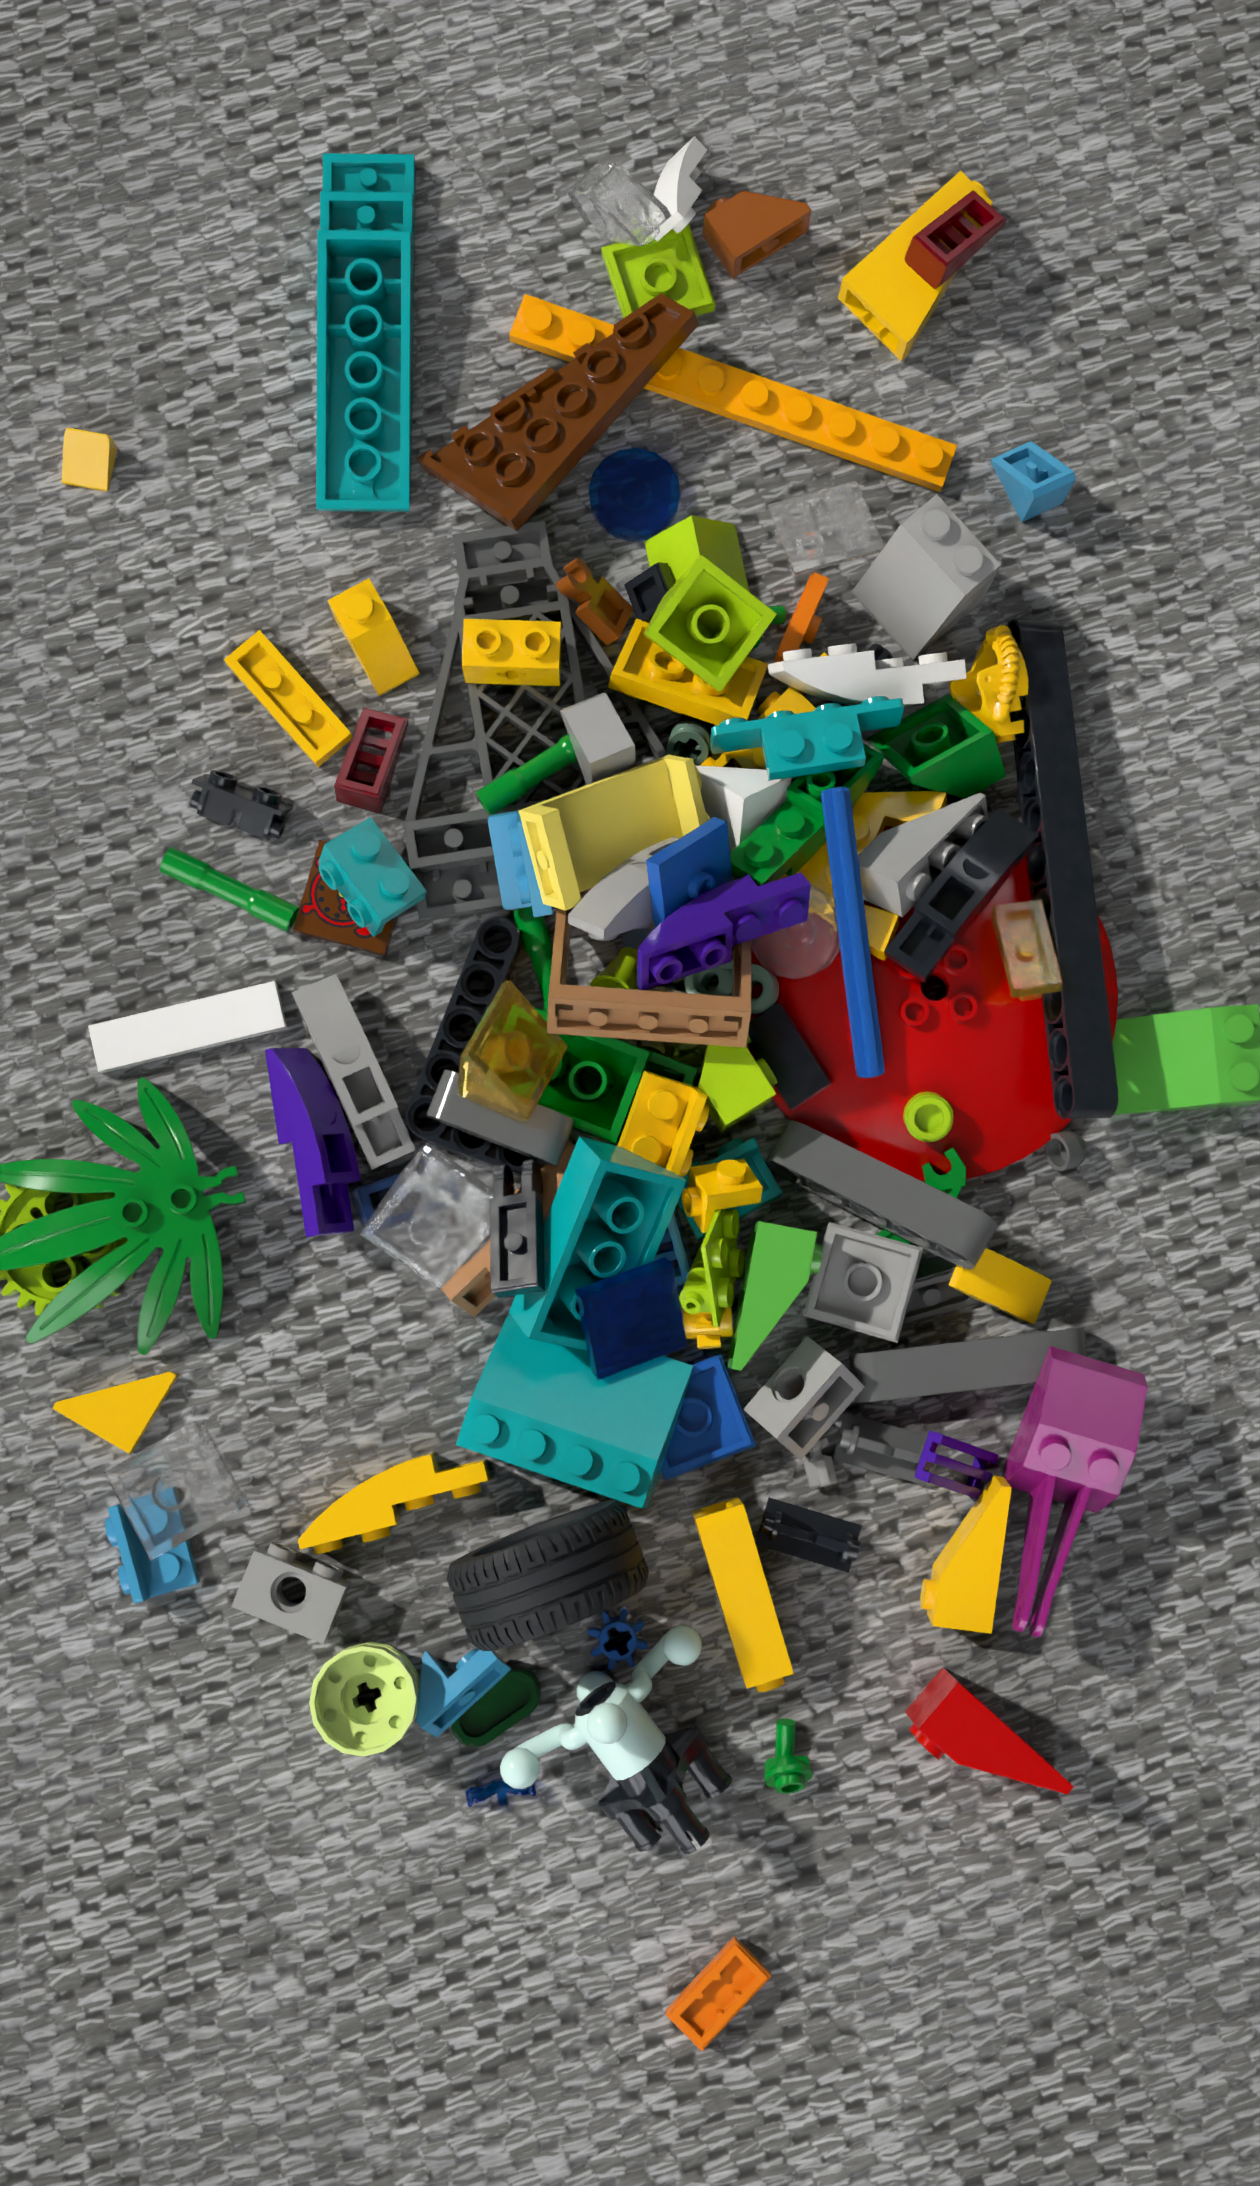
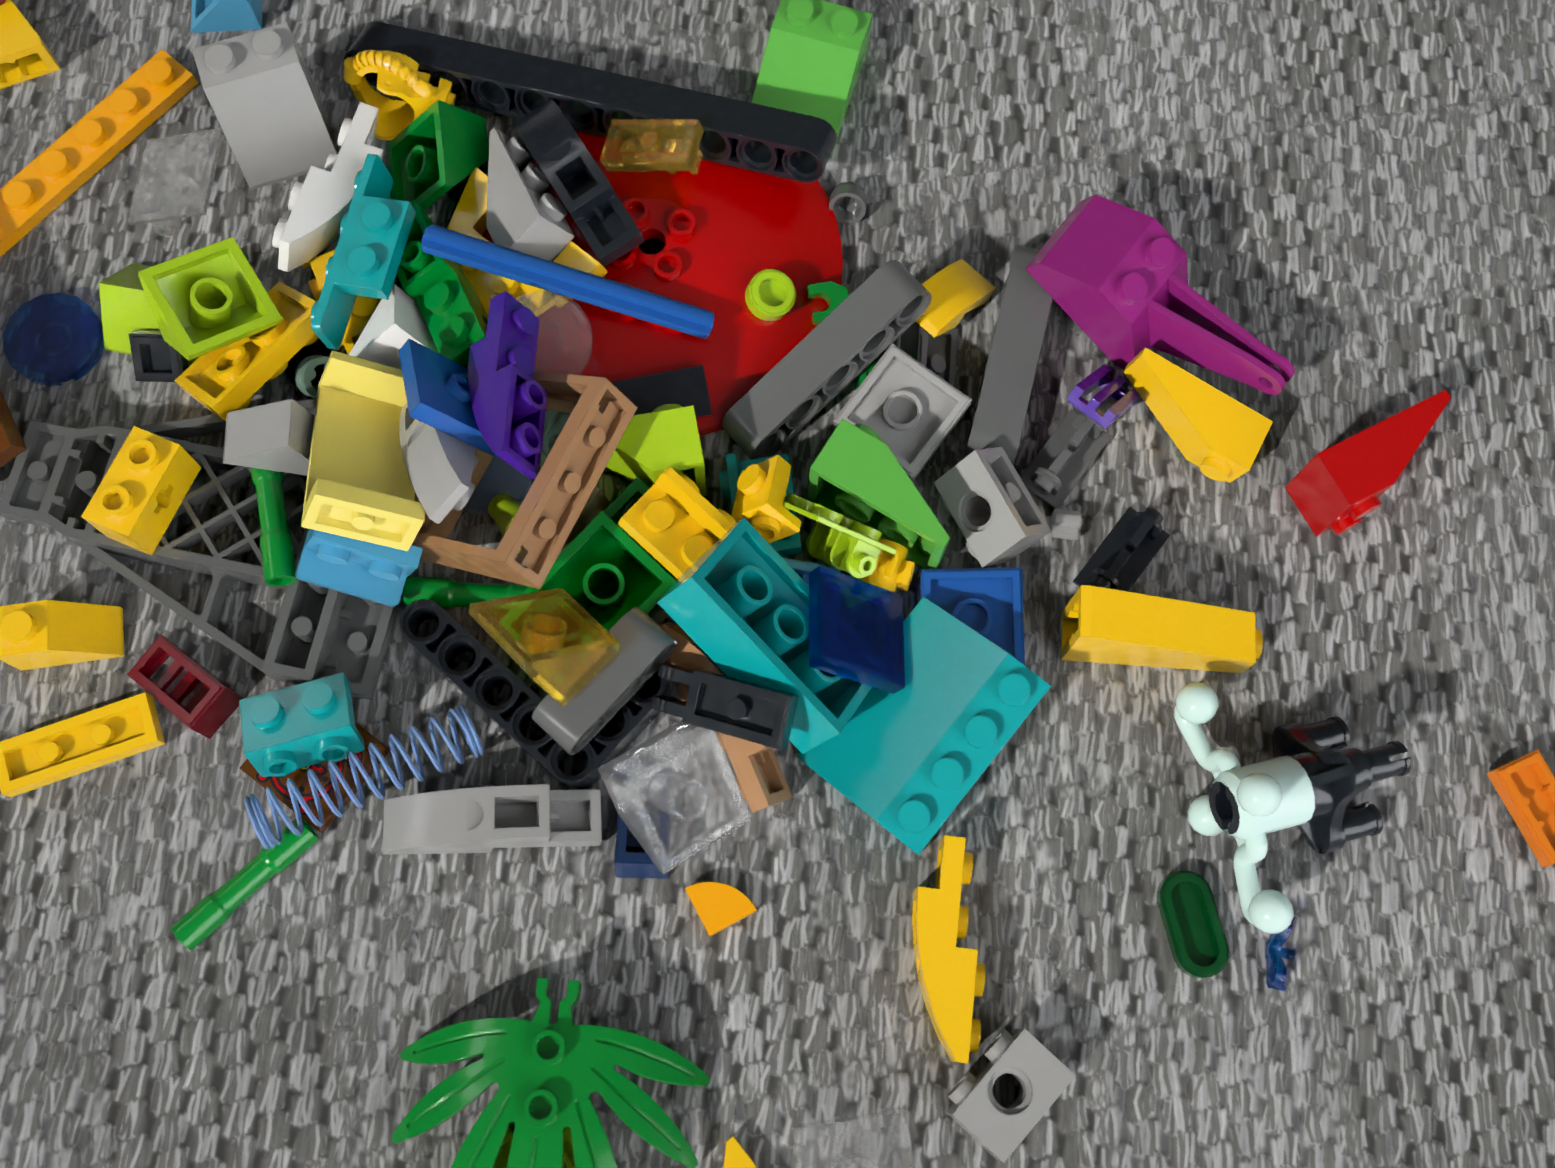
camera: 65 degrees left, 10 degrees down
(187, 1027) = (368, 985): white tile -> none
(223, 796) = (146, 853): black hinge -> none
(277, 881) = (259, 819): none -> medium blue piece
(322, 1145) = (526, 881): dark purple slope -> none
(356, 1726) = (1180, 1041): yellowish green wheel -> none
(358, 1289) = (719, 905): none -> light orange tile
(449, 1696) = (1171, 965): dark azure slope -> none
(548, 1576) = (1089, 804): black tyre -> none
(598, 601) = (138, 404): dark orange plate -> none
(613, 1651) = (1161, 785): blue gear -> none
(786, 1770) = (1340, 662): green plate -> none
(804, 622) = (254, 233): orange plate -> none

